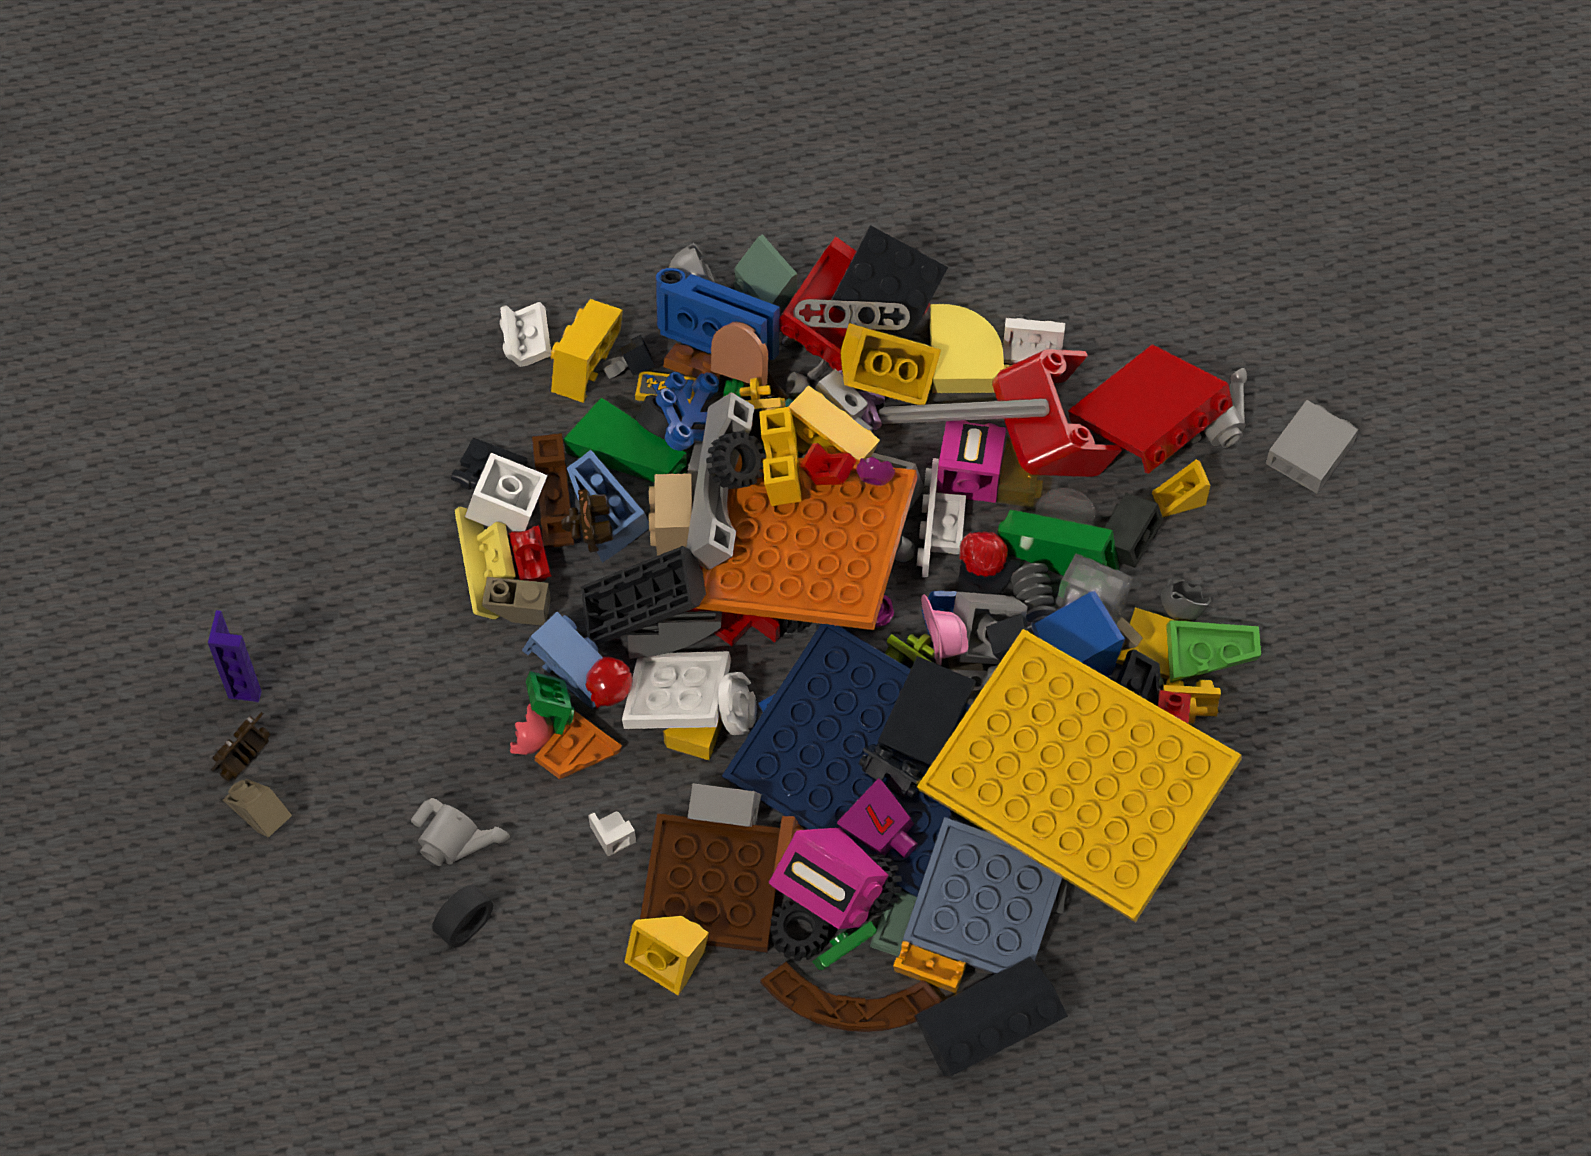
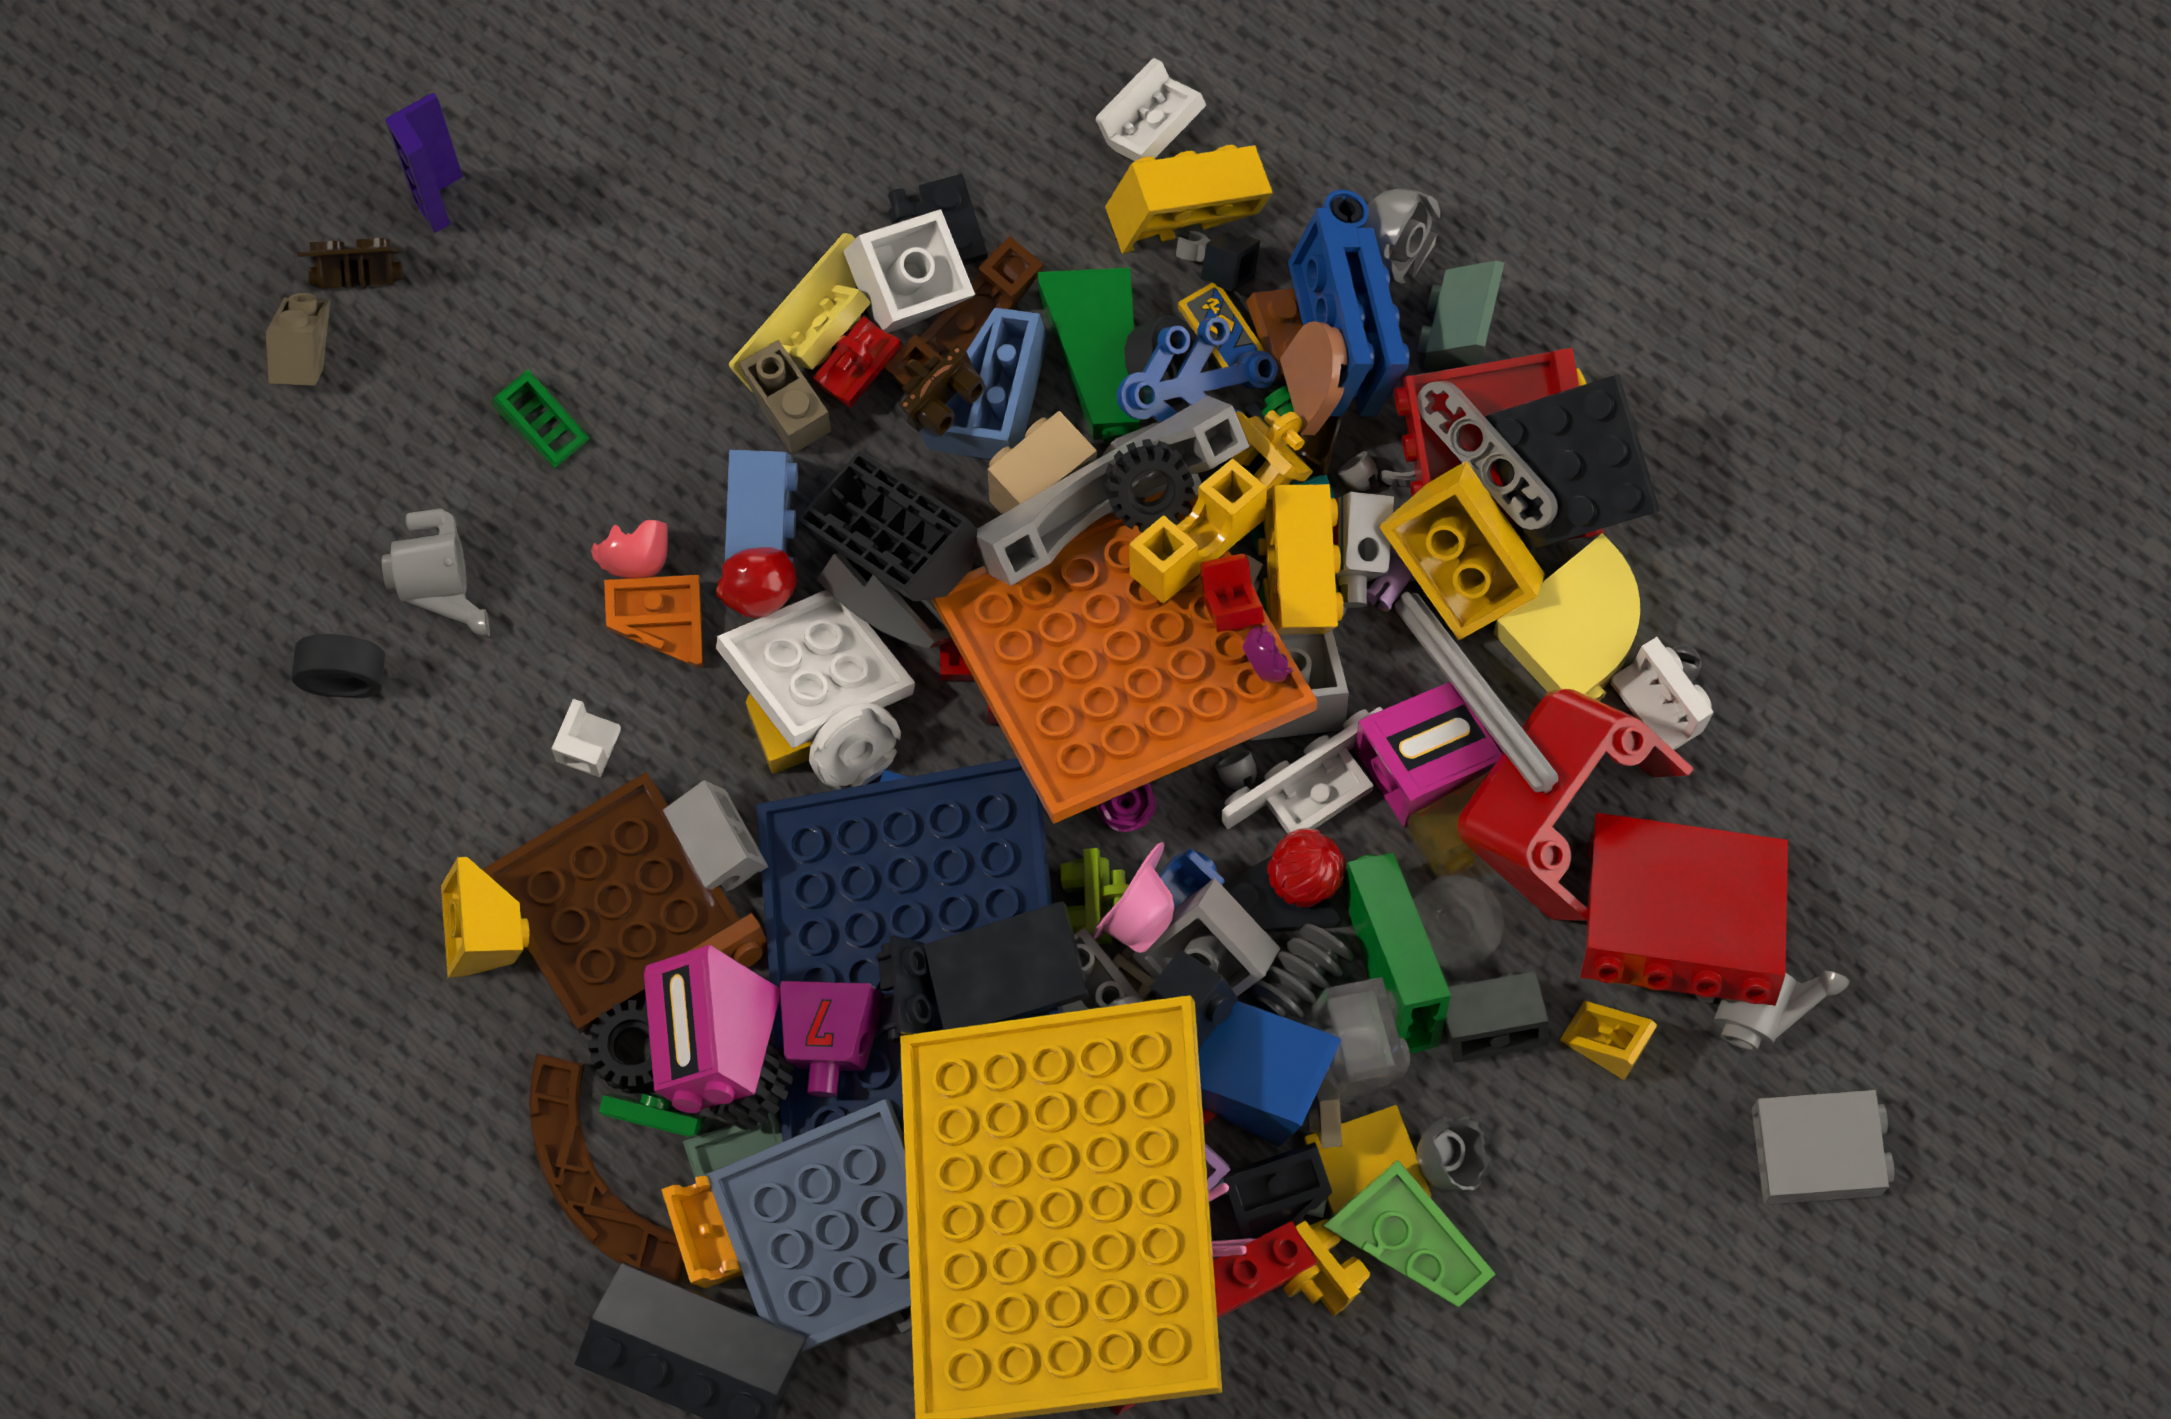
camera: 50 degrees right, 10 degrees up
(401, 736) = (504, 402): none -> green slope
(550, 699) = (680, 534): green bracket -> none

